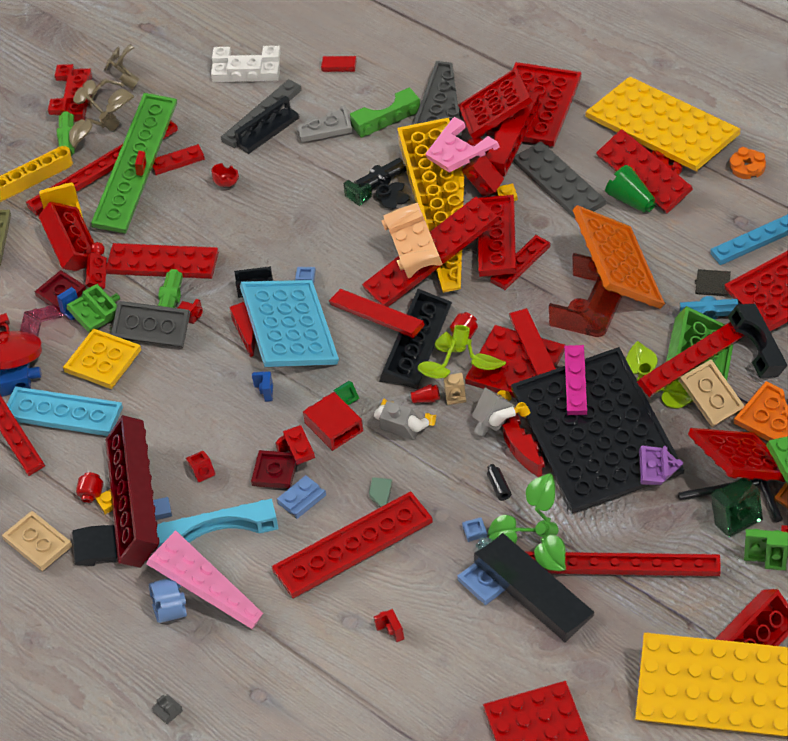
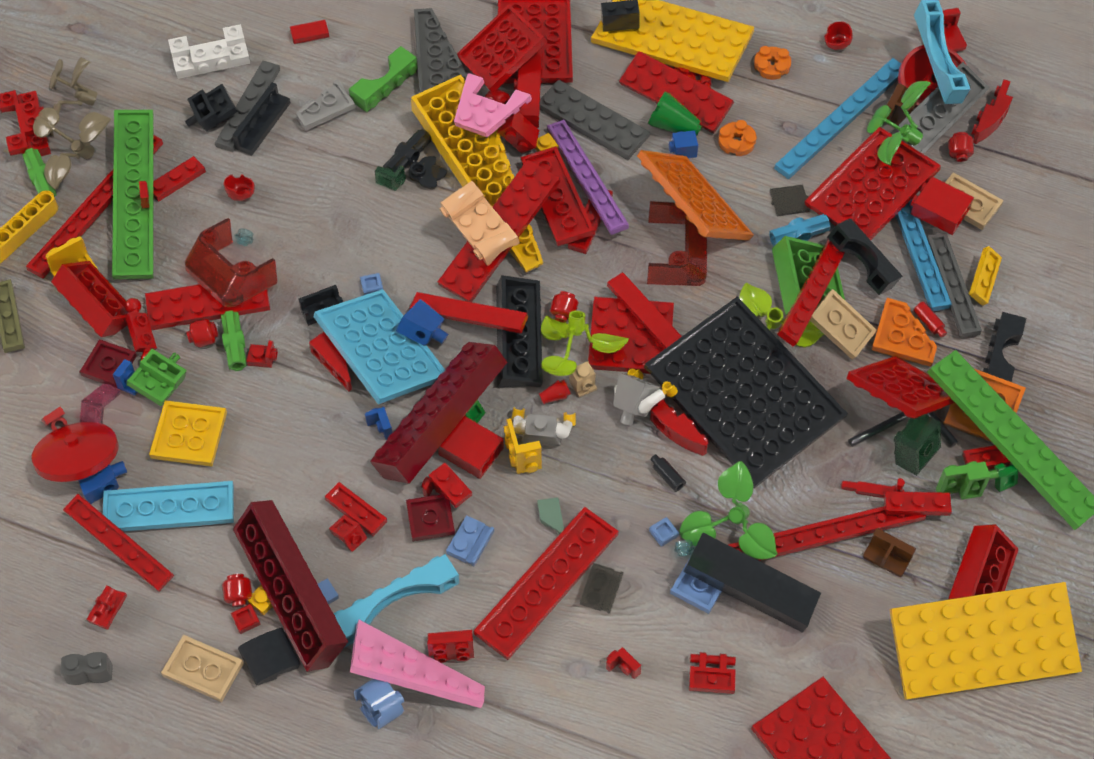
camera: 25 degrees left, 10 degrees up
(88, 512) = (245, 618): none -> red tile
(146, 283) = (202, 333): none -> red head
(151, 323) = (228, 380): dark grey plate -> none
(183, 245) = (222, 279): none -> clear red windscreen
(213, 215) = (244, 237): none -> clear light blue plate
(214, 448) = (356, 508): none -> red plate
(227, 108) = (211, 107): none -> black plate
(247, 573) = (451, 645): none -> red bracket
(315, 384) = (438, 412): none -> dark red brick
(331, 313) = (422, 324): none -> blue torso
(374, 435) = (525, 456): none -> yellow bracket
(398, 560) = (601, 588): none -> clear smoke plate
(463, 657) = (712, 679): none -> red plate
(531, 226) = (588, 177): none -> medium lavender tile
(575, 380) = (709, 343): dark pink plate -> none
(615, 96) = (620, 15): none -> black piece
(632, 215) = (684, 144): none -> blue brick
(657, 465) = (821, 416): medium lavender slope -> none
(673, 595) = (889, 552): none -> reddish brown panel
(677, 224) = (737, 129): none -> orange plate
(699, 546) = (872, 489): none -> red piece
(716, 558) = (917, 503): none -> red plate

